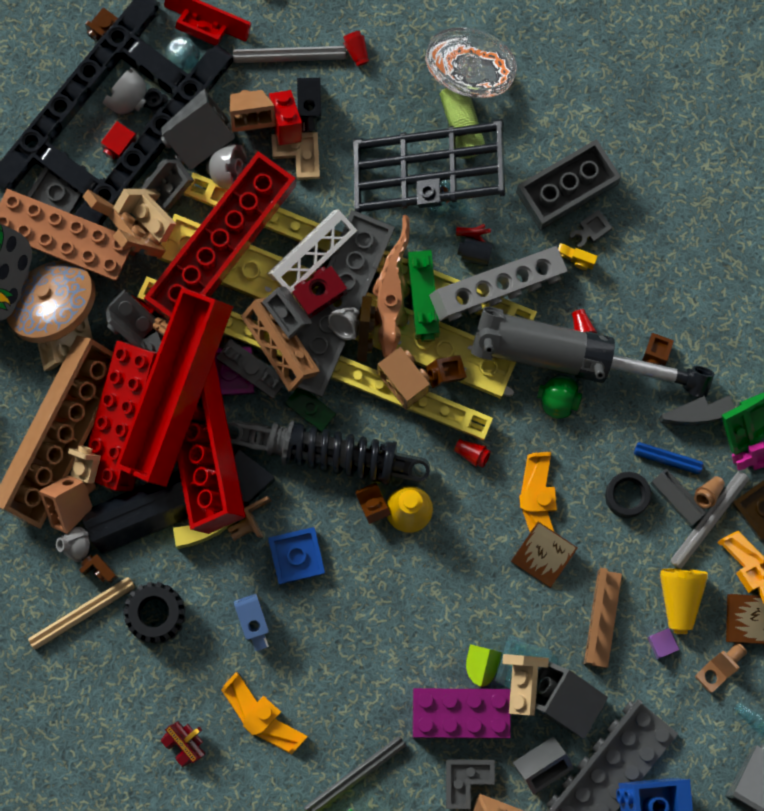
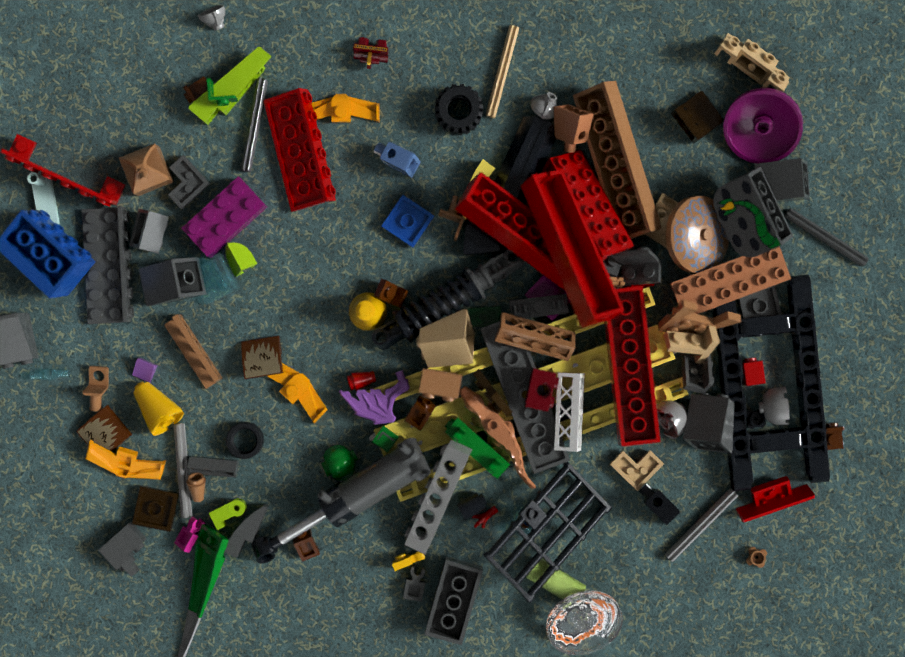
camera: 140 degrees right, 10 degrees up
(85, 464) = (582, 156): tan bracket -> none
(103, 570) = (513, 107): reddish brown bracket -> none
(183, 52) = (766, 464): clear light blue head -> none
(251, 111) = (690, 465): medium nougat torso -> none
(287, 118) = (665, 481): red brick -> none
(287, 312) = (548, 359): dark grey slope -> none
(334, 712) = (299, 149): none -> red bracket
(345, 323) = (507, 385): light grey piece -> none
(356, 47) = (664, 567): red cone -> none
(362, 411) = (448, 341): none -> tan slope
(479, 415) = (375, 404): none -> medium lavender animal
(498, 377) = (385, 439): none -> green tile
(524, 682) = (202, 268): tan bracket -> none
(582, 322) = (366, 520): red cone -> none
(668, 458) = (241, 485): blue axle -> none
(700, 445) = (233, 508): none -> lime leg

